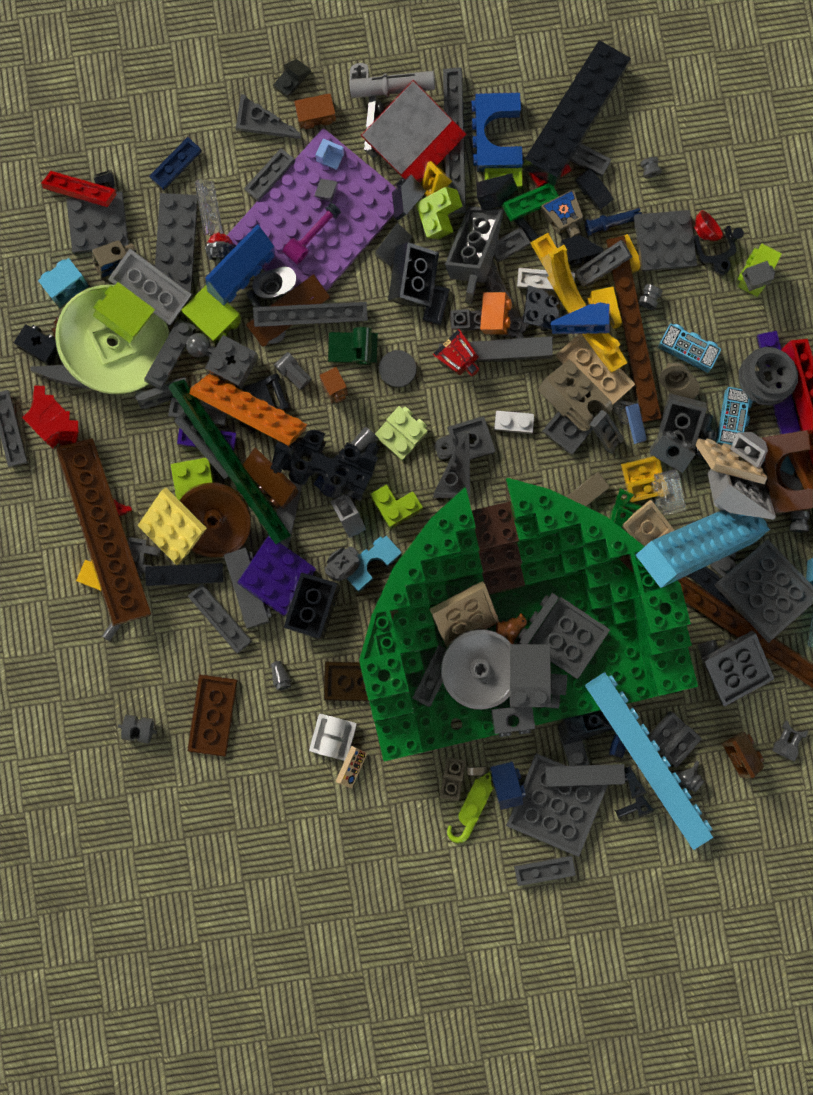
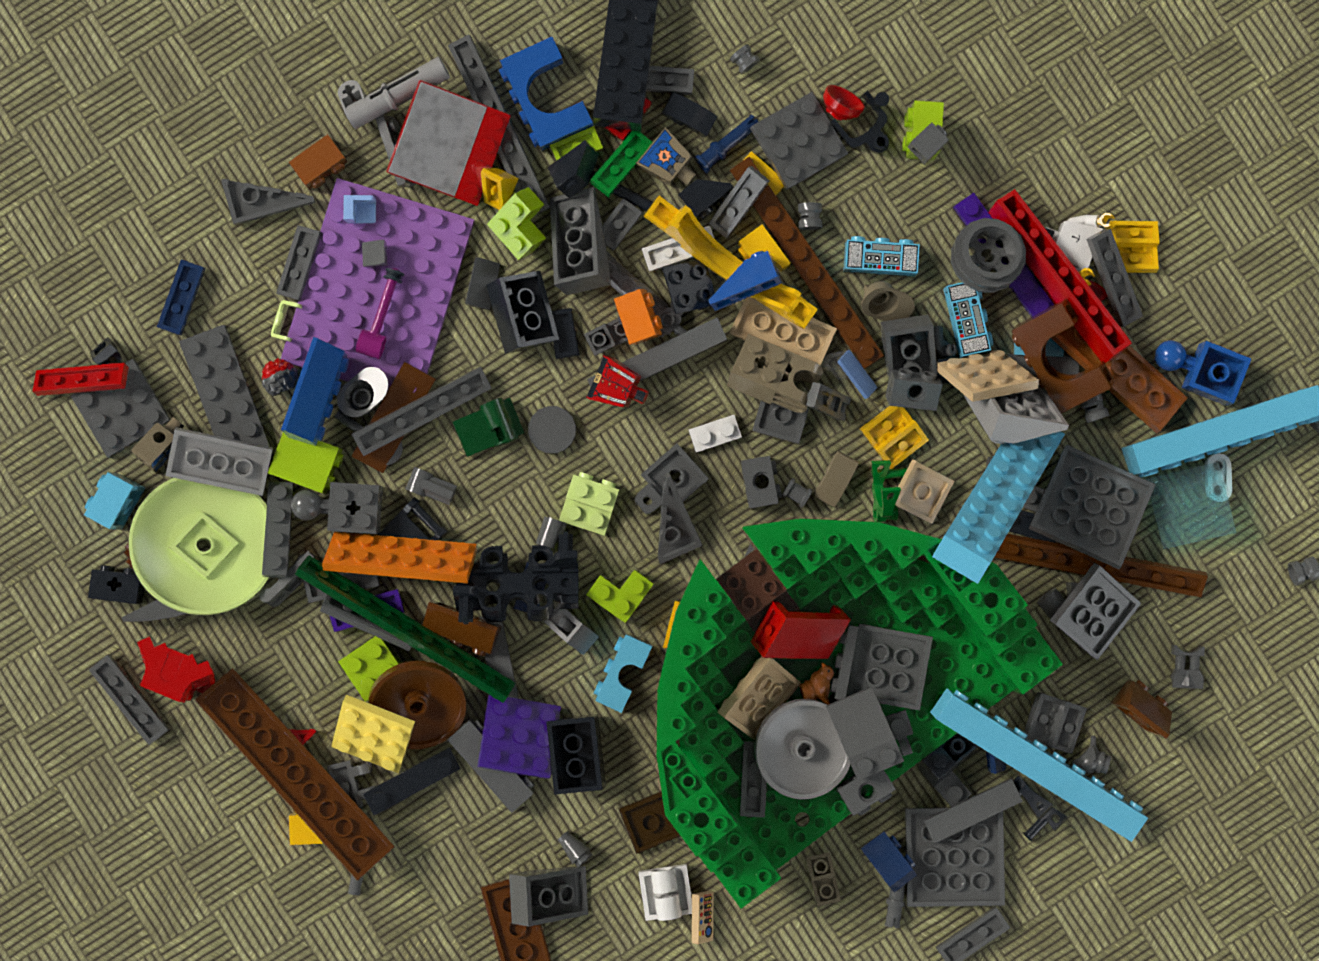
camera: 25 degrees left, 5 degrees up
(123, 312) = (200, 507): lime brick -> none
(208, 207) = (244, 334): clear plate -> none
(219, 618) = (475, 812): dark grey tile -> none
(239, 207) = (280, 318): none -> yellowish green piece
(246, 700) = (548, 895): none -> dark grey slope
(291, 78) = (272, 132): pearl dark grey slope -> none
(334, 385) = (487, 485): dark orange brick -> none
(342, 563) = (589, 688): dark grey tile -> none
(406, 195) = (472, 220): black slope -> none
(471, 289) = (597, 299): dark grey tile -> none
(472, 807) = (860, 900): lime plate -> none
(477, 770) = (847, 858): dark tan tile -> none
(497, 821) = (894, 910): none -> dark grey pin
(514, 579) = (799, 633): none -> red panel
(533, 458) = (755, 496): none -> dark grey brick
(555, 486) = (797, 492): none -> dark grey bush
(669, 492) = (931, 440): clear brick -> none
(750, 448) = (1004, 351): light grey slope -> none

